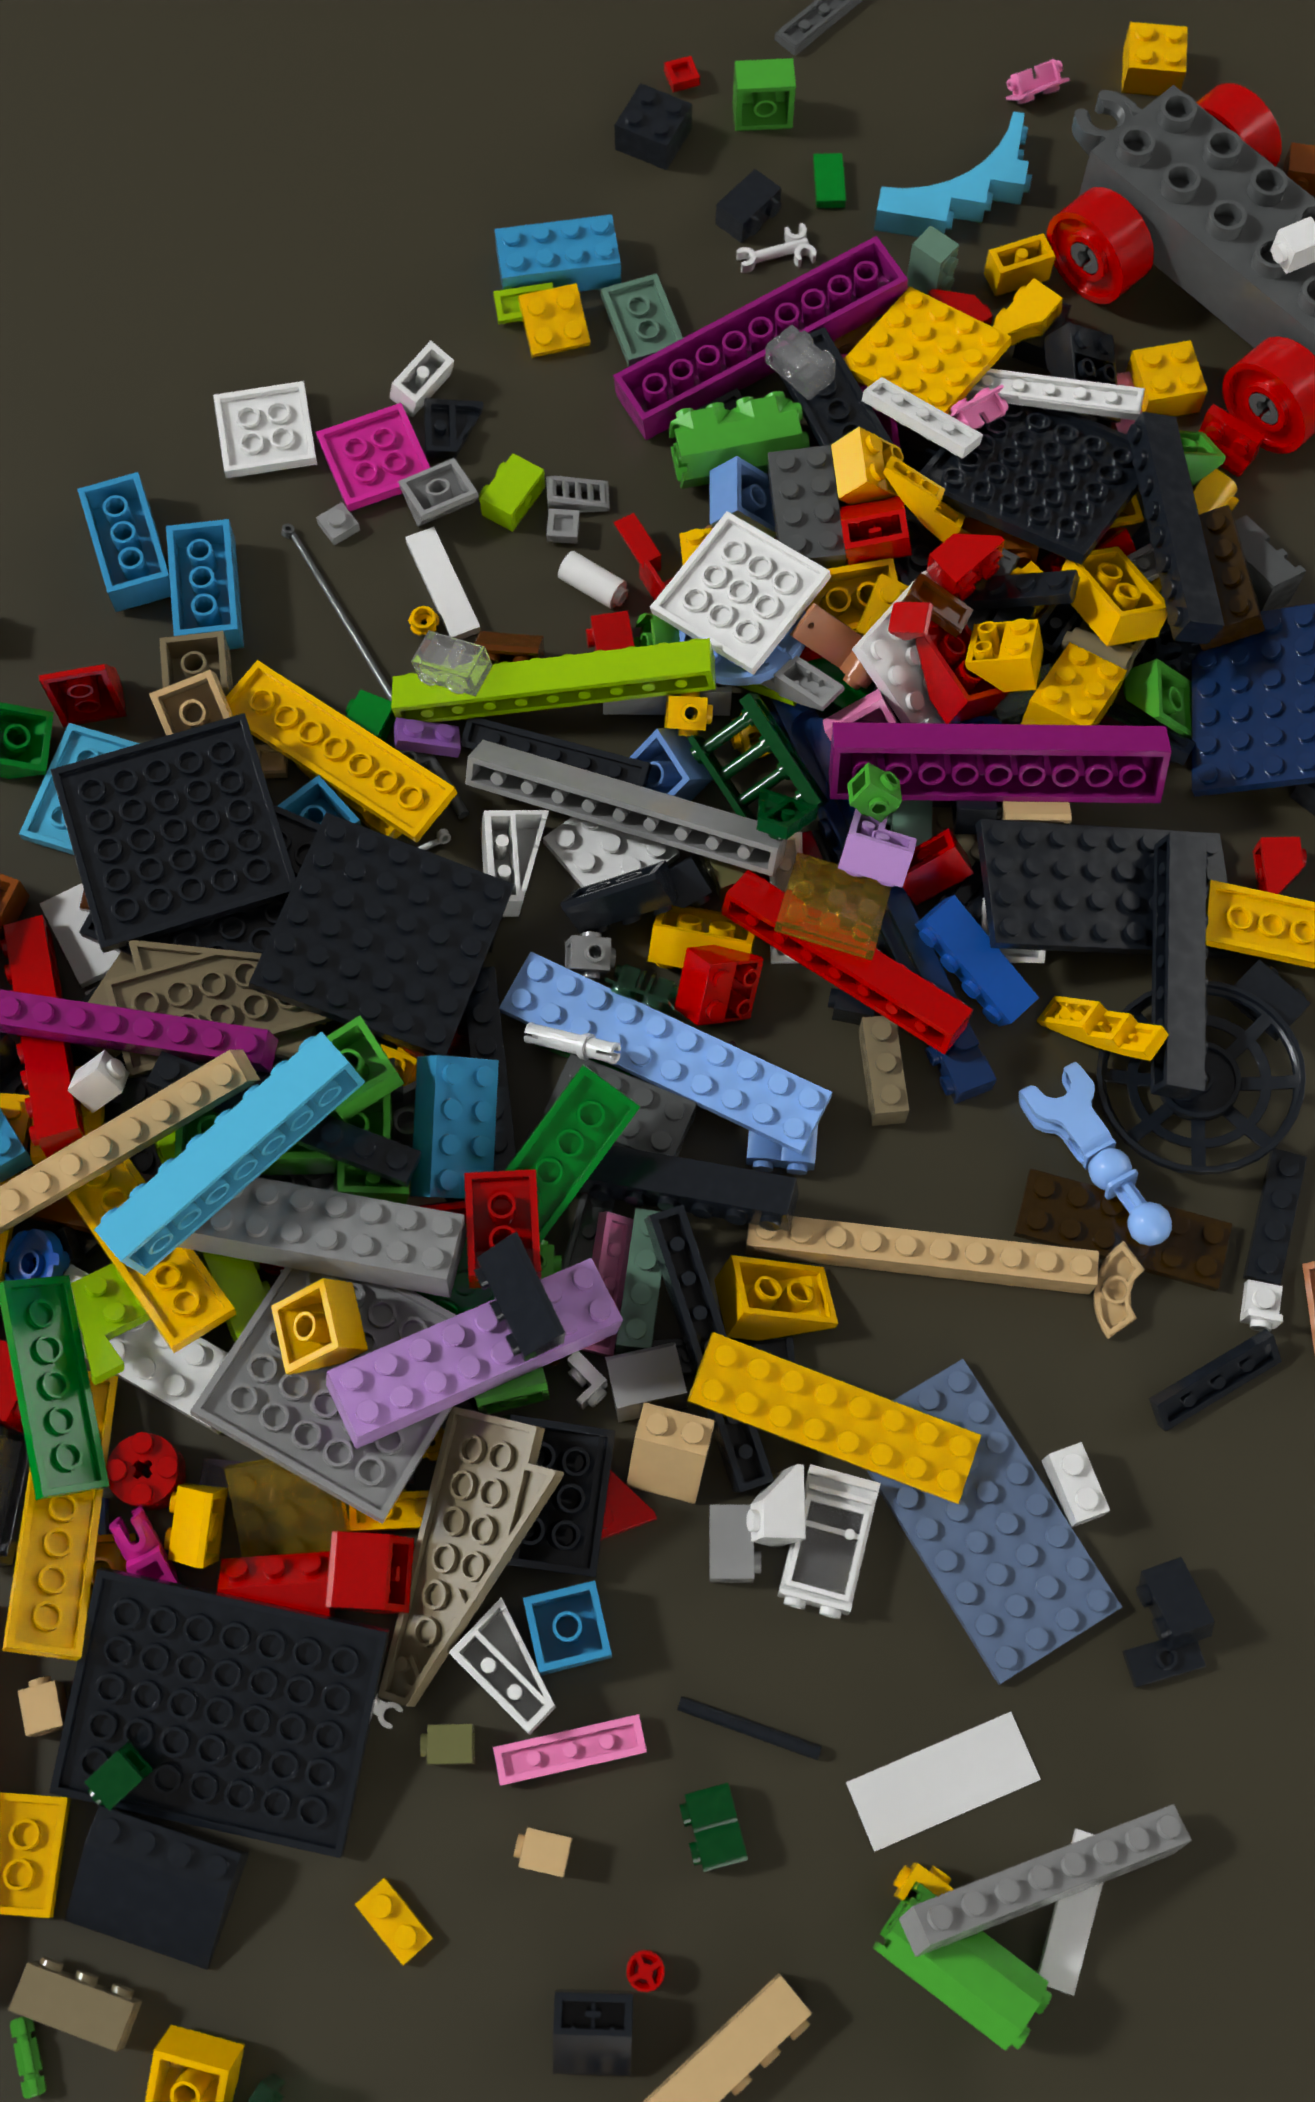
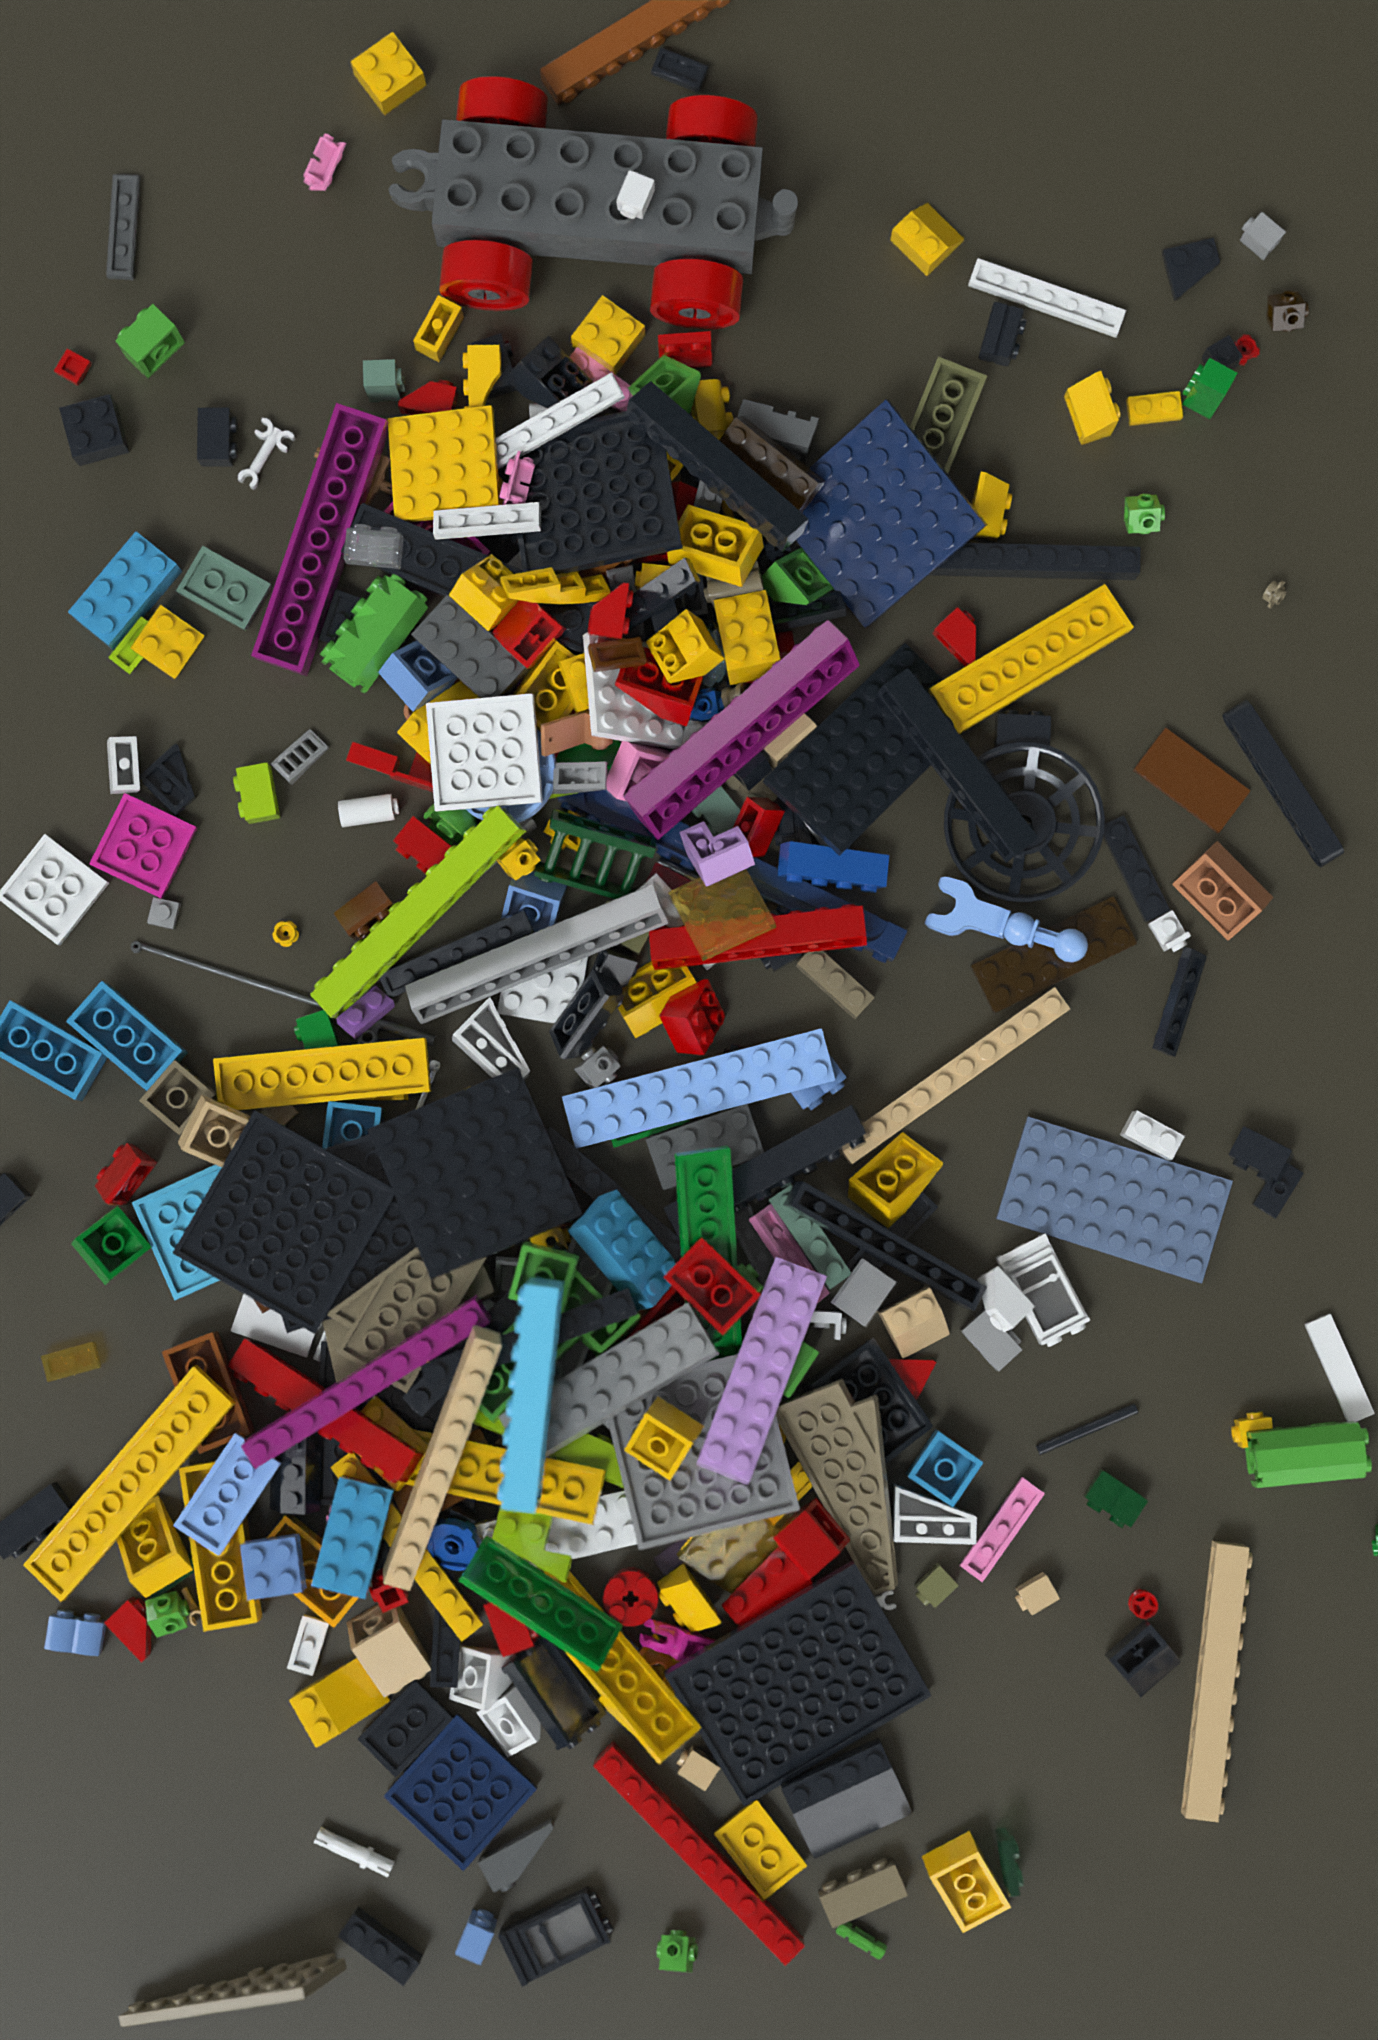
camera: 40 degrees left, 15 degrees up
(98, 1081) = (395, 1413): white brick -> none
(117, 1776) = (777, 1766): dark green brick -> none
(394, 1921) = (988, 1699): yellow plate -> none
(437, 491) = (212, 837): light grey slope -> none
(443, 584) = (272, 896): white tile -> none
(451, 663) = (345, 959): clear brick -> none
(519, 1298) = (767, 1326): black slope -> none
(563, 526) = (312, 787): light grey plate -> none
(584, 1046) = (635, 1136): white pin -> none
(627, 981) = (663, 1061): clear green hinge -> none
(783, 815) = (640, 879): dark green wing -> none
(829, 180) = (249, 365): green tile -> none
(834, 1418) = (990, 1222): yellow plate -> none
(874, 792) = (688, 819): bright green brick -> none
(910, 619) = (611, 684): red slope -> none
(942, 1781) = (1213, 1362): white sticker -> none
(966, 197) = (339, 333): medium azure arch -> none
(1043, 1880) = (1315, 1372): light grey brick -> none
(1104, 1029) = (943, 844): yellow slope -> none
(1114, 1289) = (1078, 997): tan tile -> none

